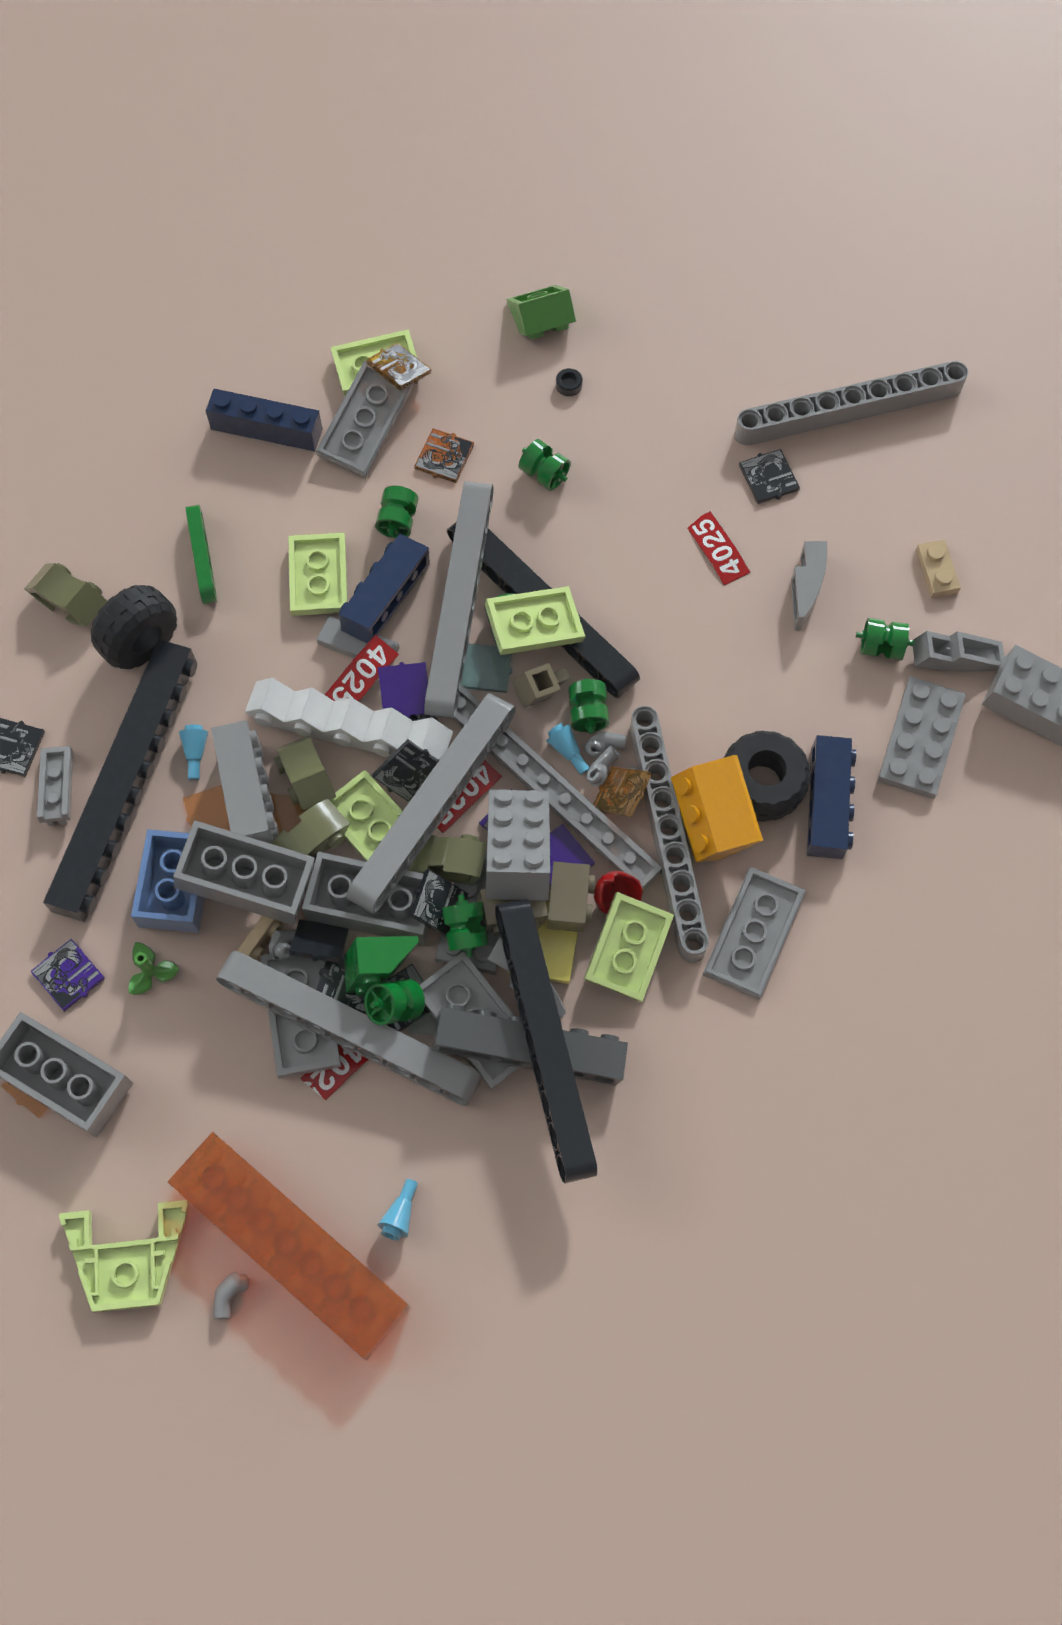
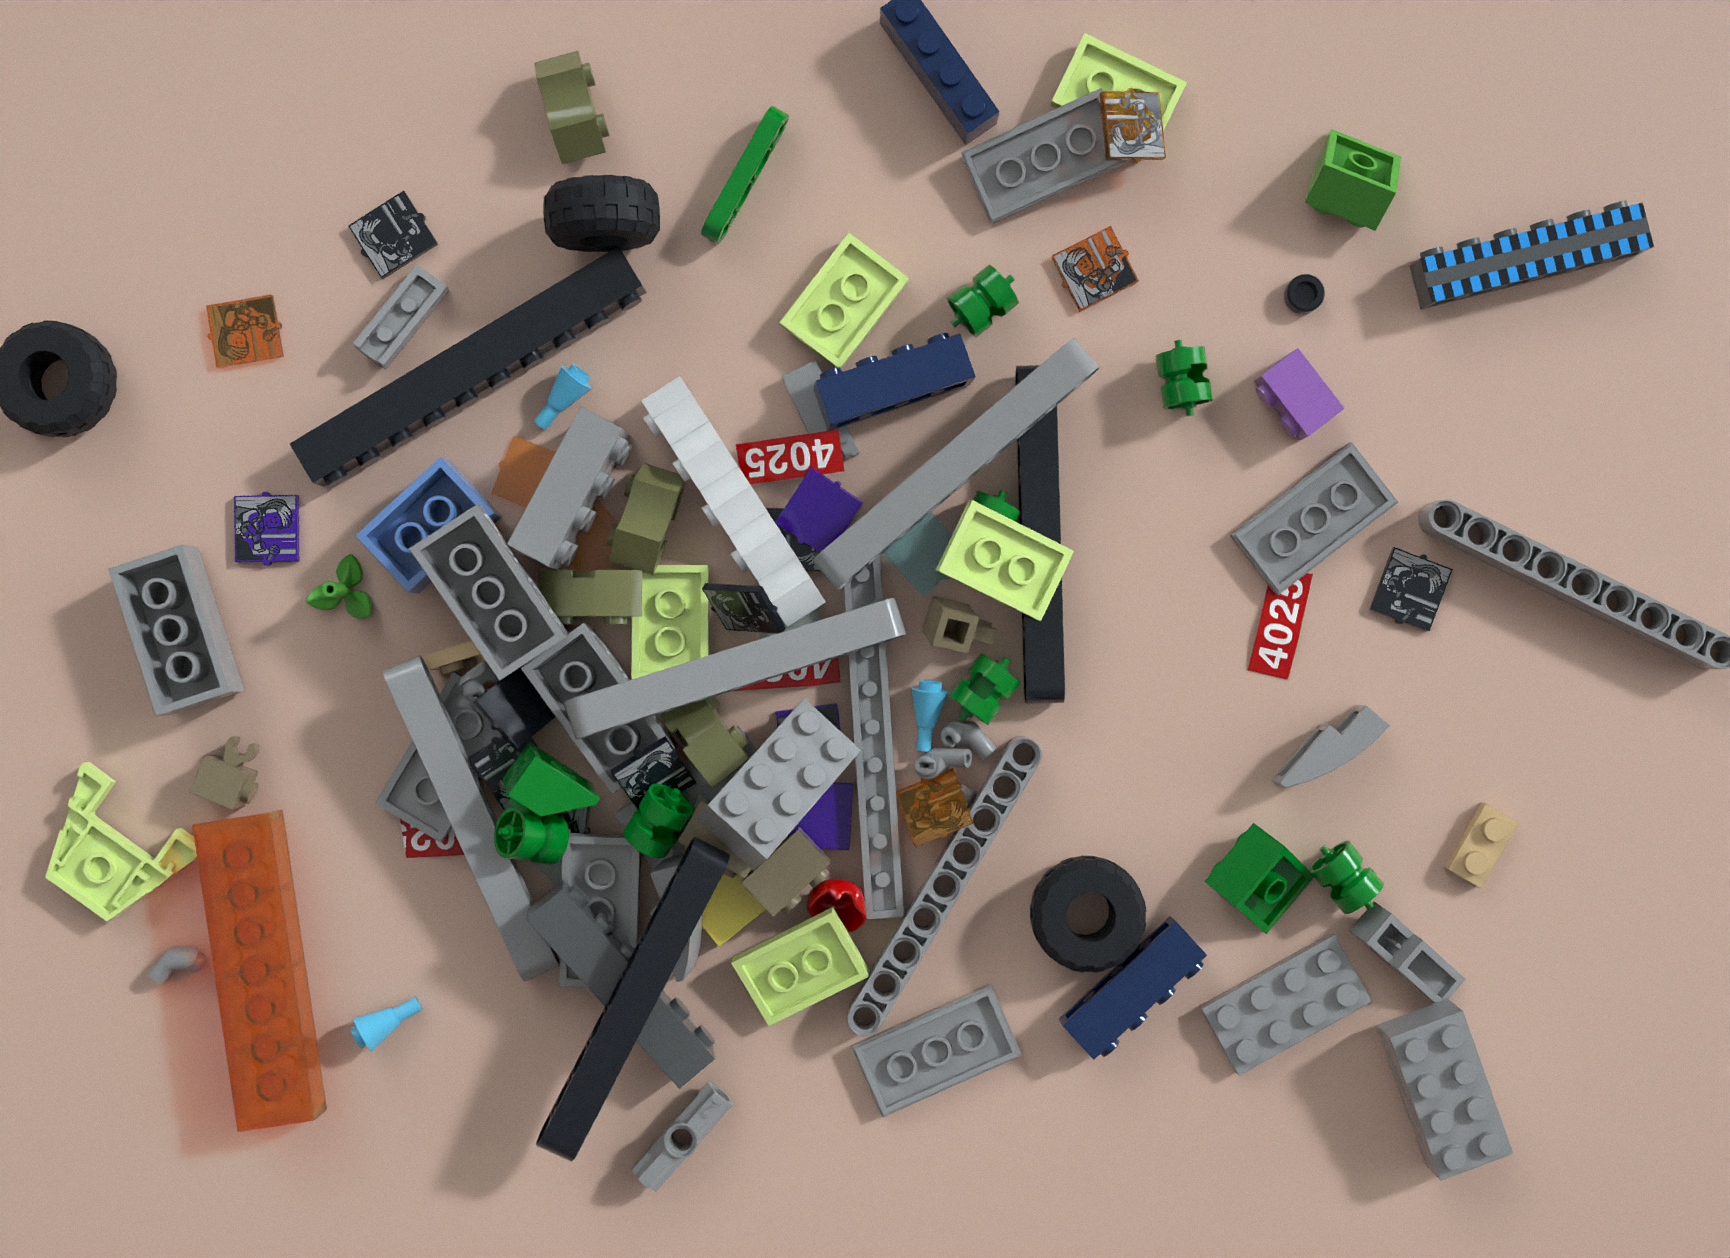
camera: 40 degrees right, 20 degrees up
(167, 1143) = (225, 778): none -> dark tan brick
(613, 427) = (1298, 395): none -> medium lavender brick
(652, 1133) = (666, 1152): none -> light grey piece
(666, 276) = (1531, 255): none -> brick
(683, 483) = (1314, 518): none -> light grey tile
(716, 809) = (1003, 913): light orange slope -> none
(839, 679) = (1259, 877): none -> green slope

